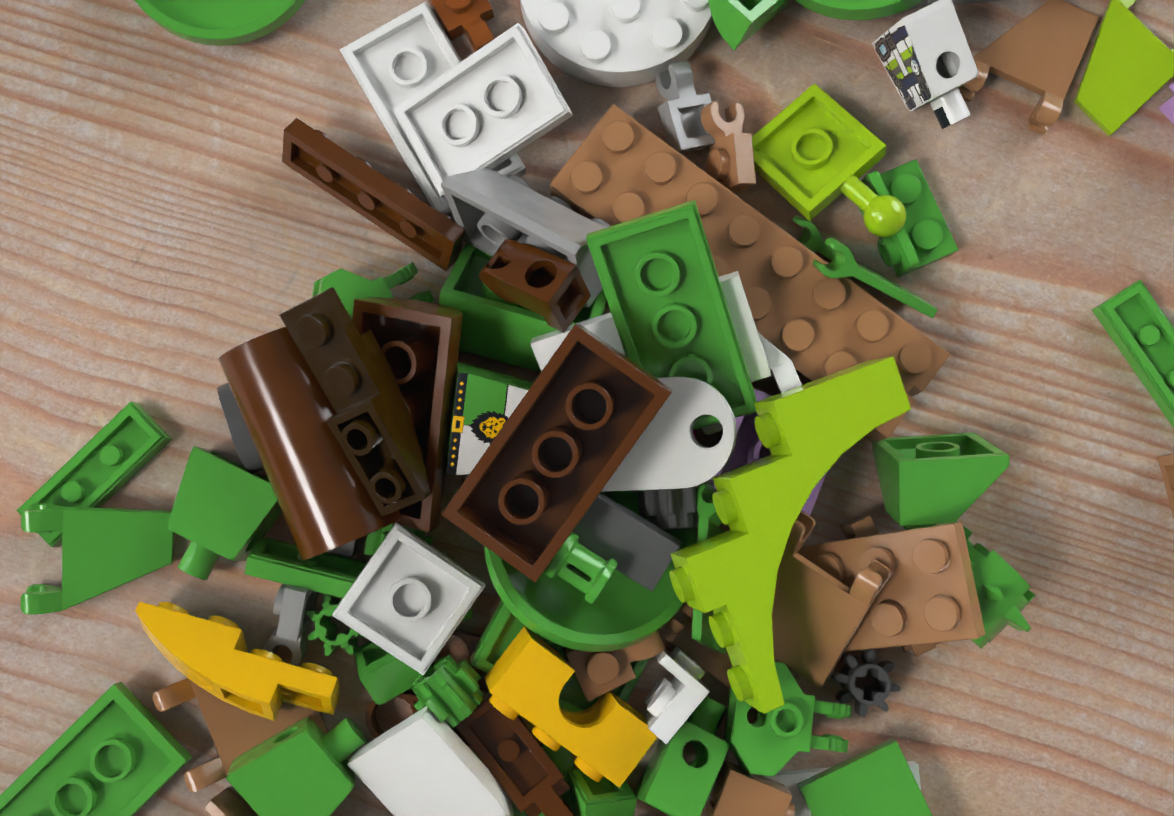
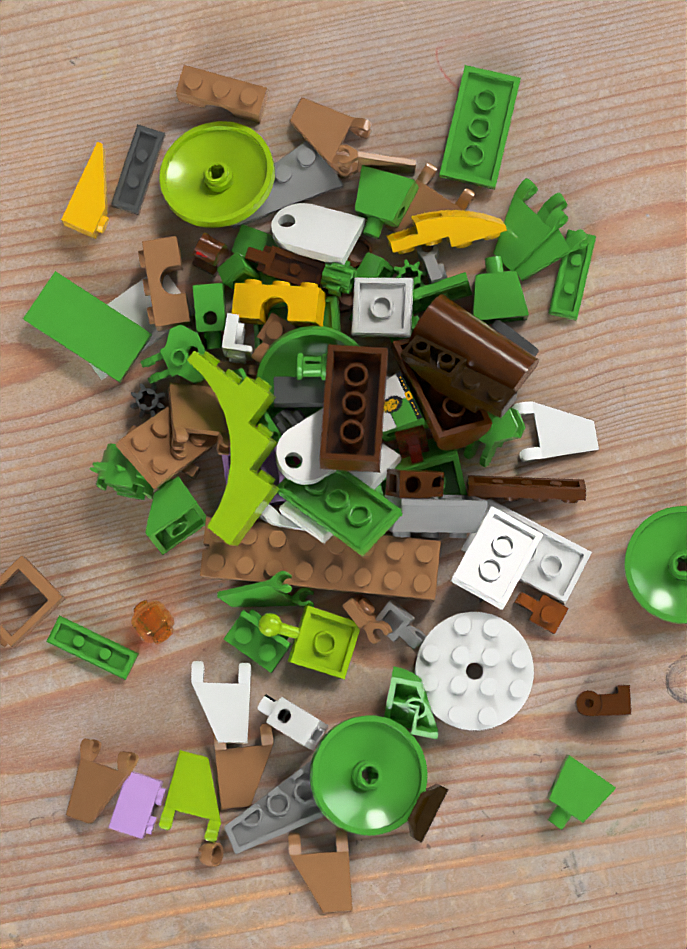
camera: 150 degrees right, 0 degrees up
(110, 588) = (525, 228): none -> bright green flag
(274, 247) = (557, 432): none -> white flag
(499, 351) = (412, 443): none -> clear red tile
(1013, 153) = (225, 703): none -> white flag
(1053, 337) = (152, 621): none -> clear orange head

